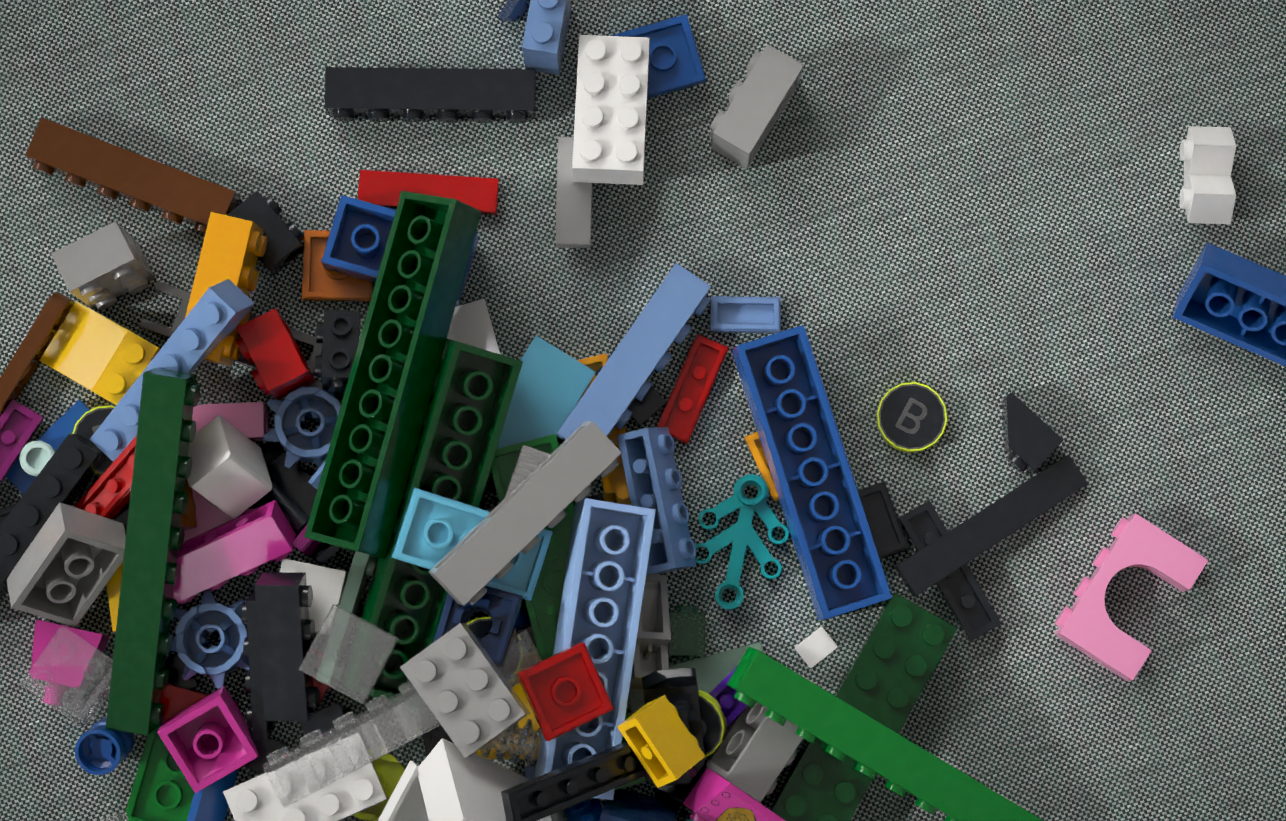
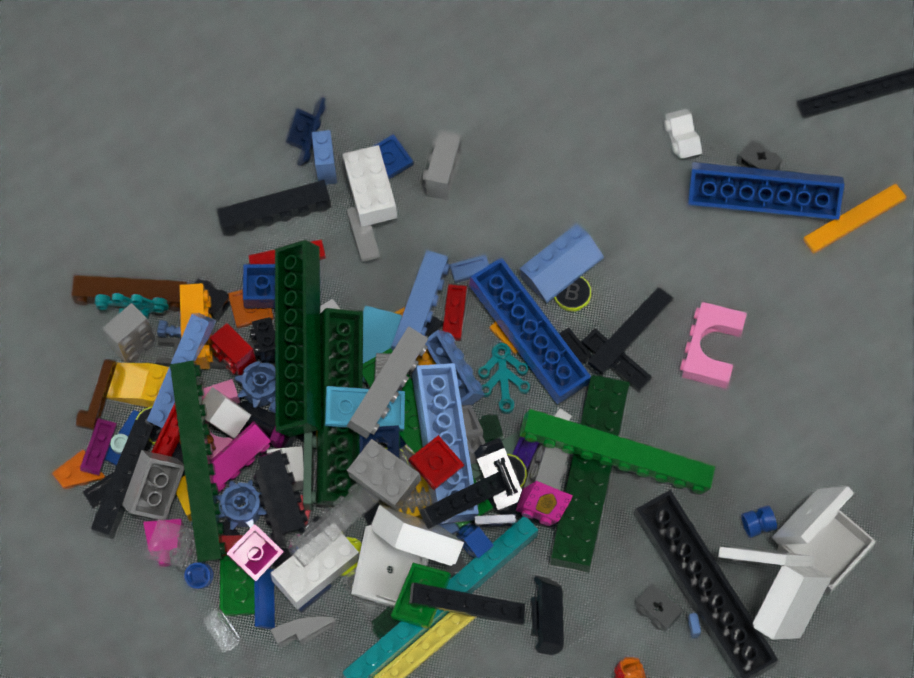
camera: 15 degrees left, 15 degrees down
(168, 223) = (156, 305): none -> teal plant
(173, 266) = (164, 329): none -> medium blue piece
(348, 654) = (317, 480): clear tile -> none
(661, 741) = (494, 474): yellow brick -> none
(909, 359) = (561, 263): none -> medium blue slope
(1026, 436) = (634, 283): black slope -> none

